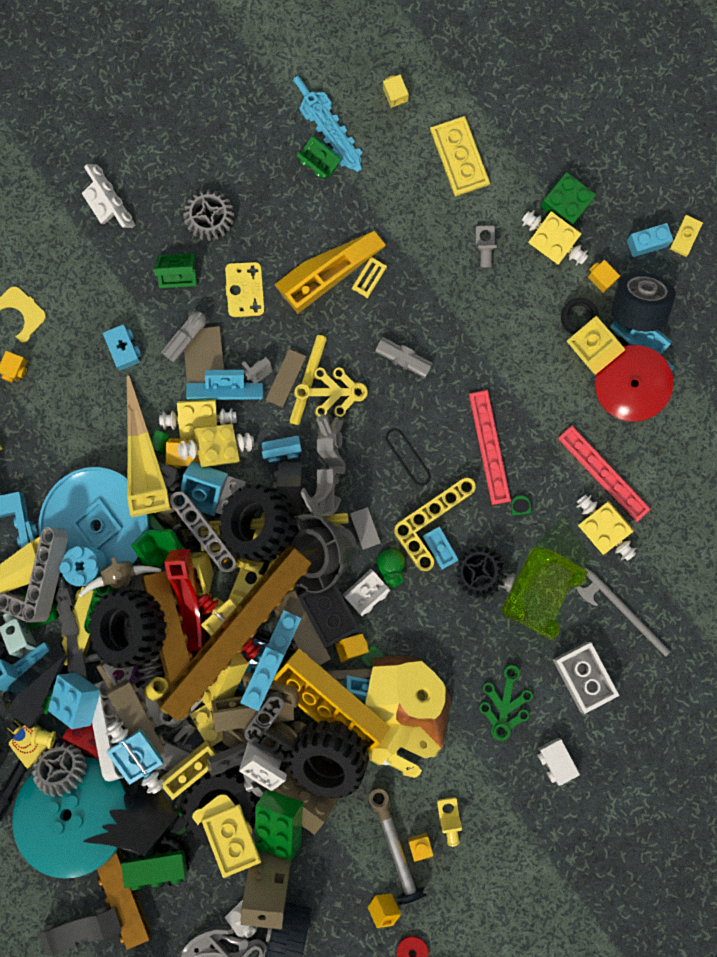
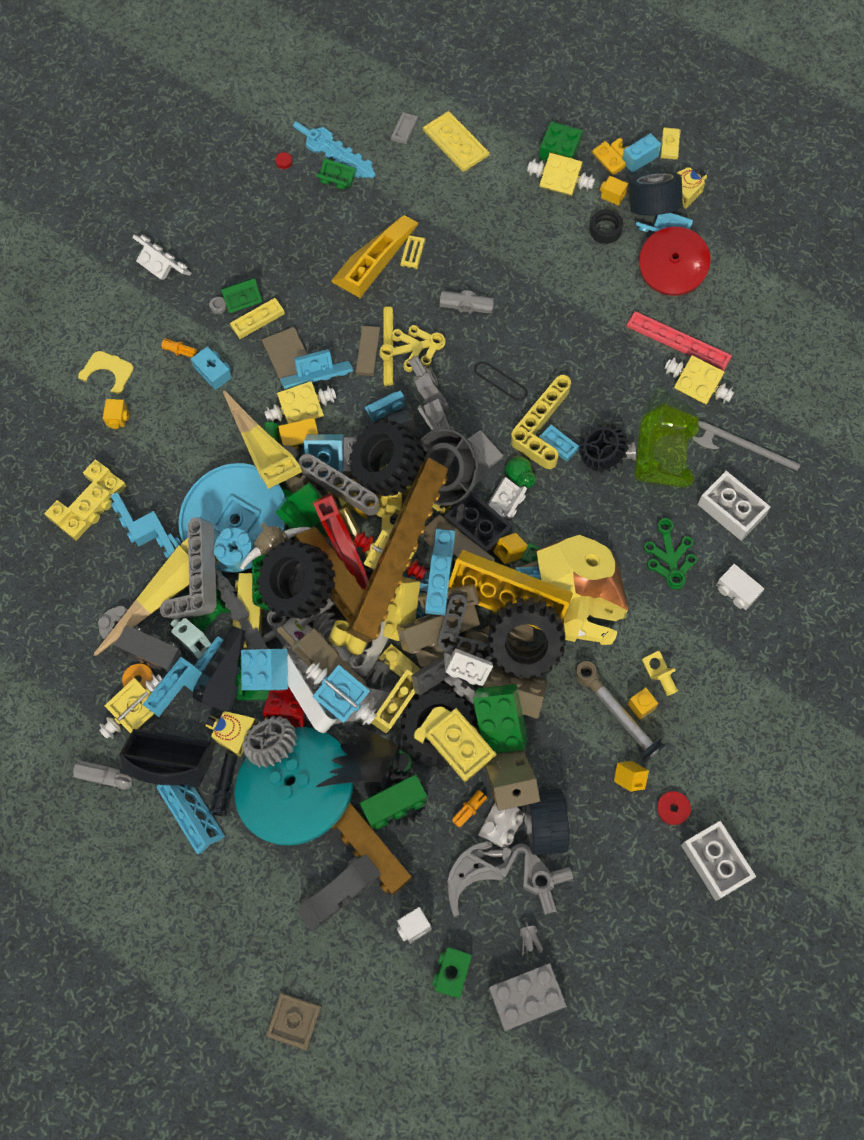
camera: 15 degrees left, 15 degrees down
(43, 737) = (245, 715): light yellow bush -> none
(96, 312) = (178, 348): none -> light orange axle
(148, 274) = (218, 305): none -> light grey tile
(184, 336) = (265, 341): light grey piece -> none
(185, 304) = (257, 318): none -> light yellow plate
(215, 212) = (253, 249): light grey gear -> none
(216, 445) = (324, 415): light yellow plate -> none
(225, 889) = (469, 808): none -> light orange axle
(250, 289) = (310, 292): light yellow axle -> none
(257, 371) = (341, 349): light grey bracket -> none
(270, 119) = (283, 160): none -> red tile
(395, 90) = (383, 108): light yellow brick -> none
(411, 121) = (404, 128): none -> light grey tile
(486, 246) = (504, 198): light grey bracket -> none
(489, 447) = (570, 351): coral tile -> none
(520, 505) = (616, 388): tile -> none
(595, 345) = (629, 238): light yellow container -> none
(617, 231) = (611, 156): none -> yellow plate
(687, 295) = (692, 185): none -> light yellow torso

